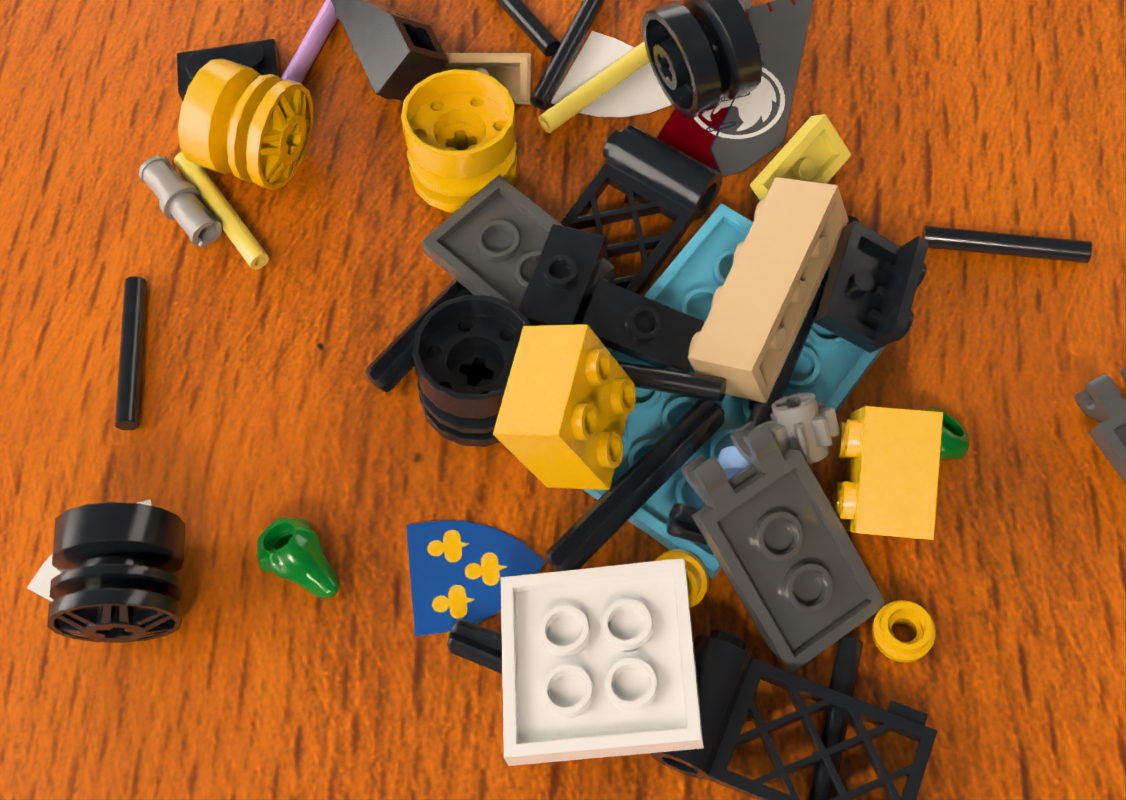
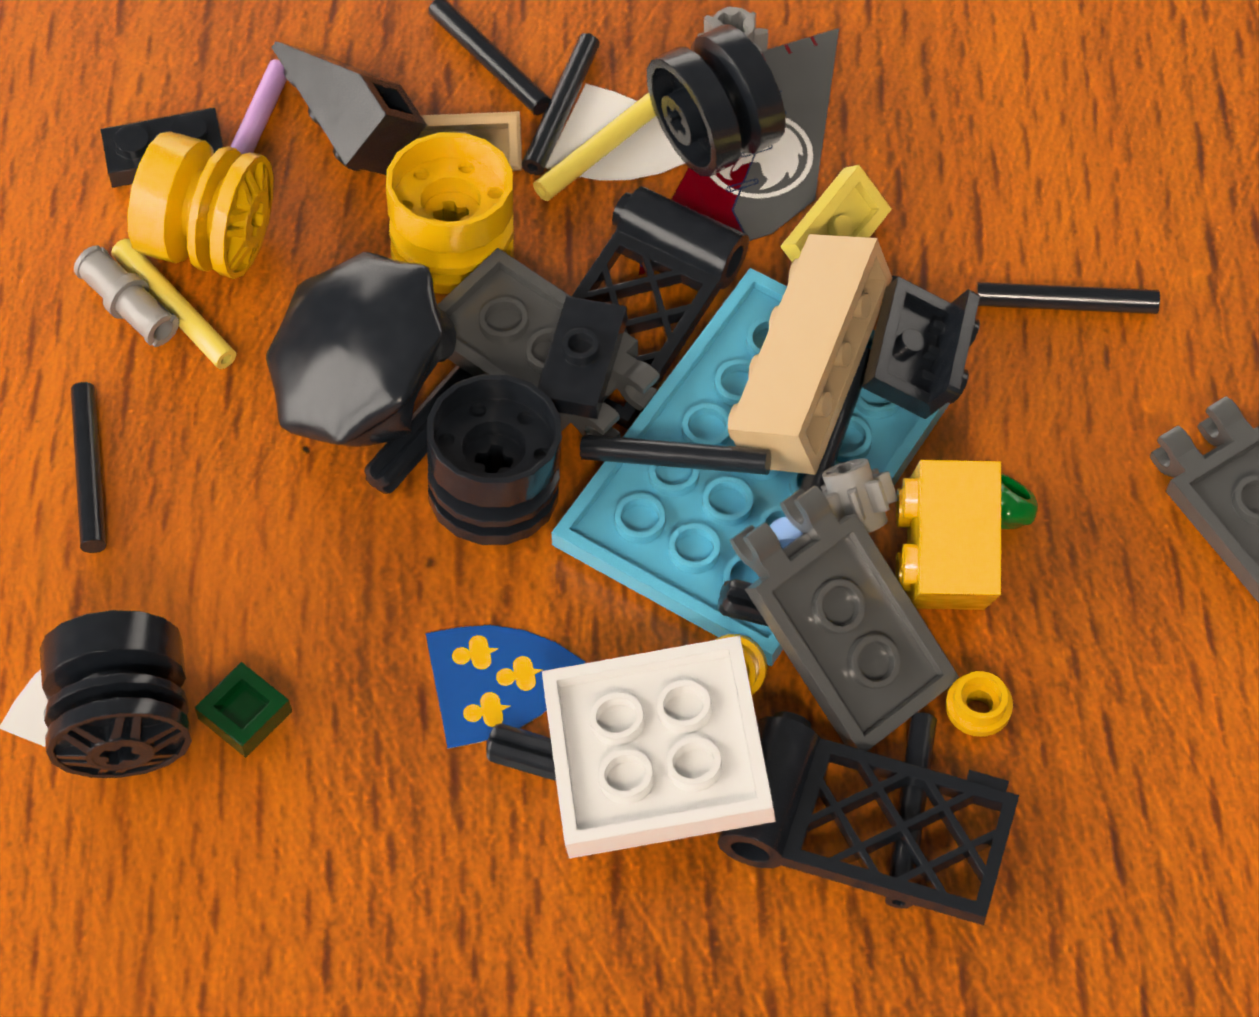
camera: 10 degrees left, 5 degrees down
(235, 589) = (243, 709): none -> dark green plate
(296, 554) = (309, 667): green animal -> none
(366, 264) = (358, 351): none -> black piece
(565, 407) = (601, 486): yellow brick -> none
(636, 486) = (681, 569): black axle -> none
(641, 326) = (670, 401): black plate -> none

